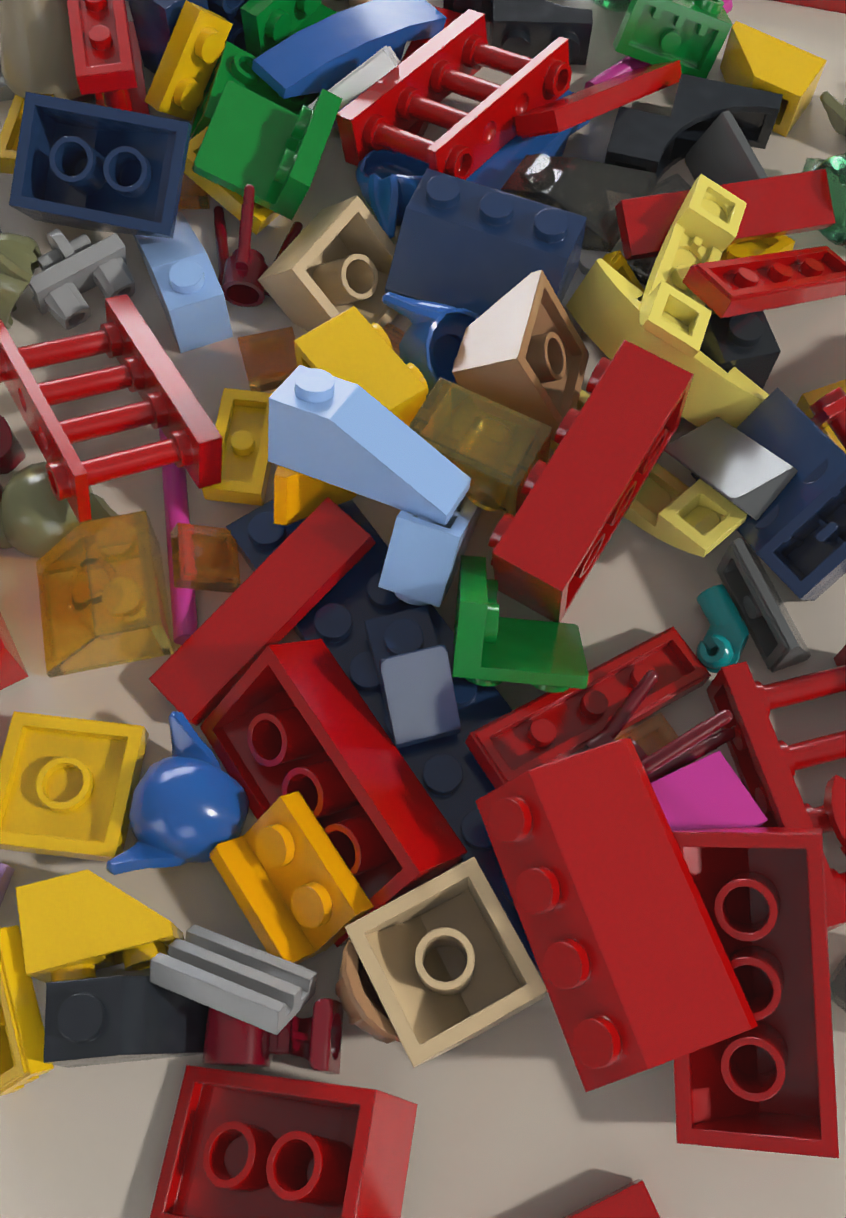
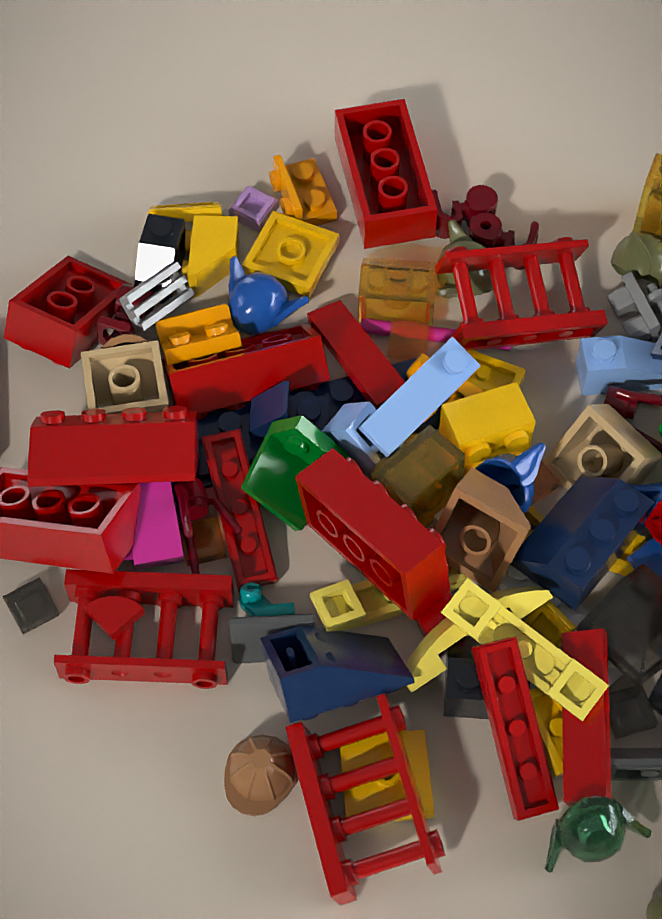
camera: 110 degrees right, 5 degrees down
(268, 358) = (552, 409): clear orange tile -> none
(733, 465) = (368, 631): dark grey slope -> none

